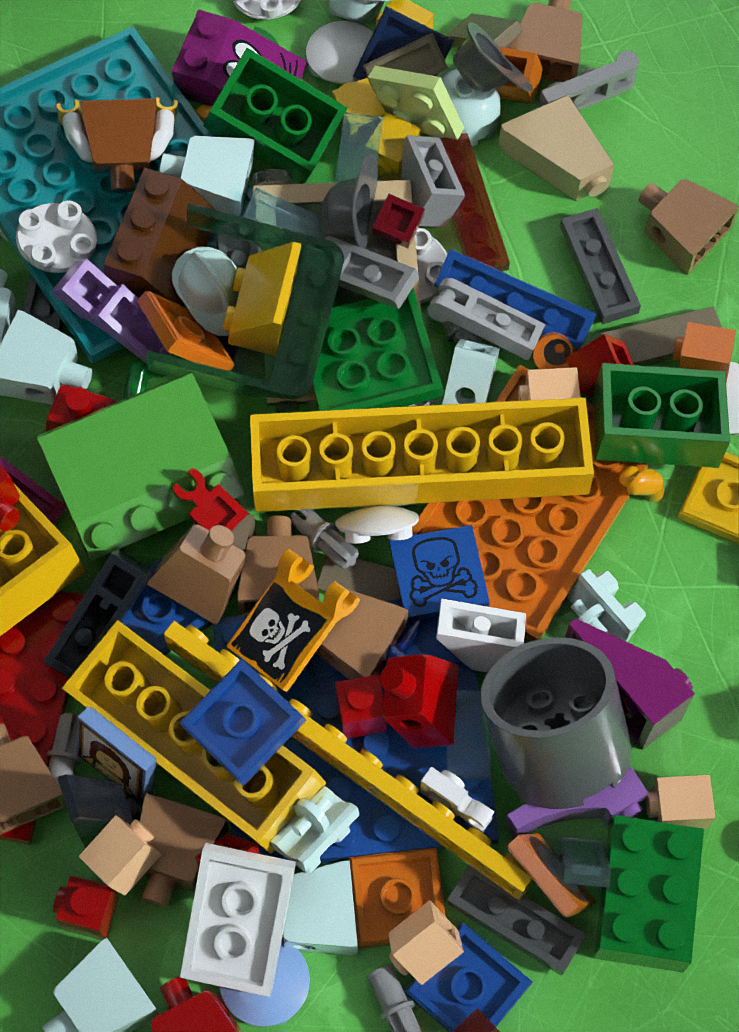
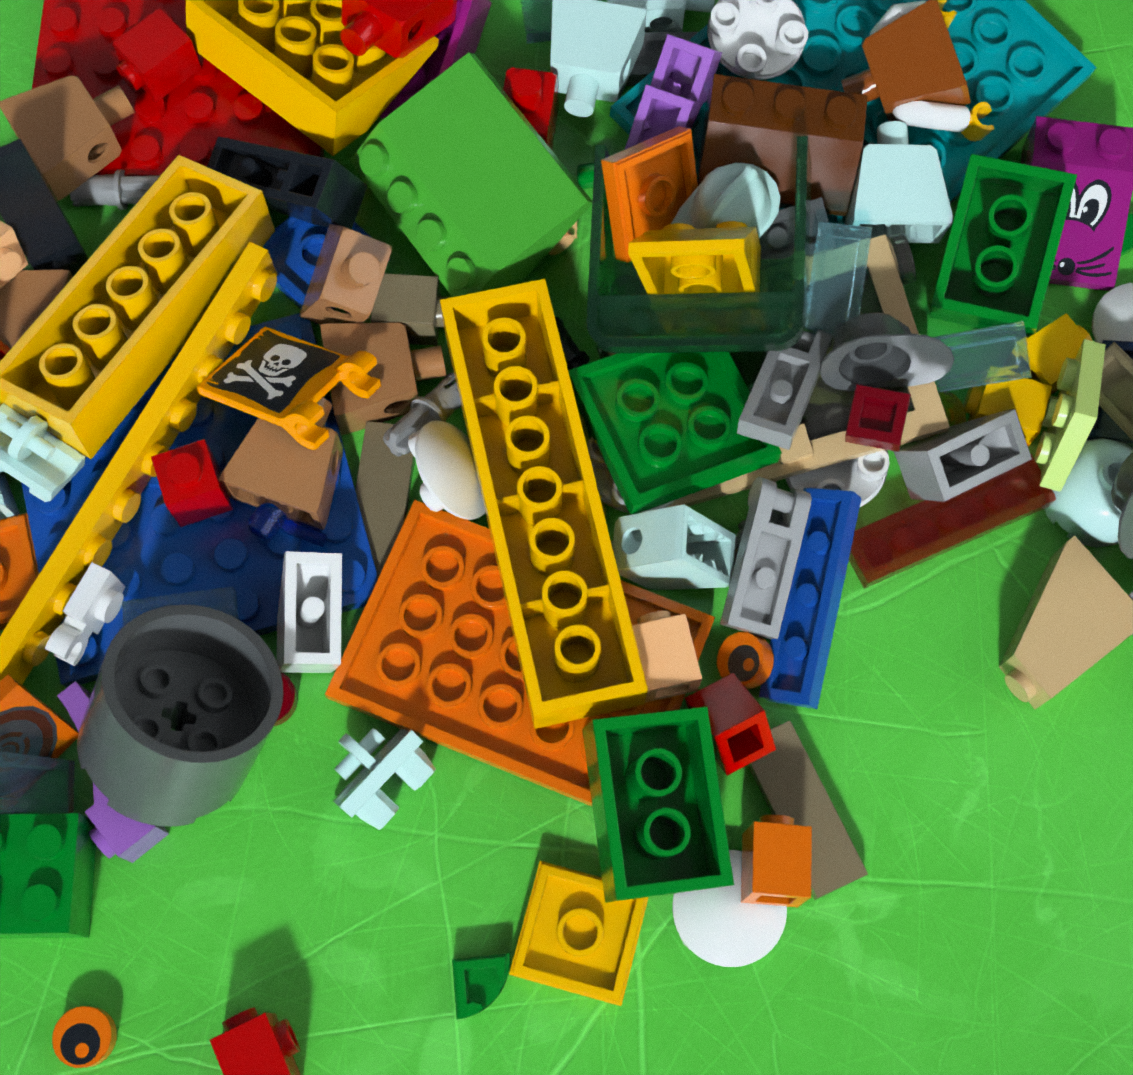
camera: 80 degrees right, 5 degrees up
(115, 754) = (105, 216): tile -> none
(210, 507) = (418, 269): red plate -> none
(242, 722) = (127, 335): blue tile -> none
(421, 699) = (205, 544): red torso -> none
(438, 568) = (392, 555): blue tile -> none
(600, 266) = (895, 706): dark grey plate -> none
(644, 483) = (564, 805): light orange arm -> none
(648, 686) = (263, 817): magenta slope -> none
(682, 801) = (122, 906): light nougat brick -> none
(686, 221) = (996, 819): medium nougat torso -> none

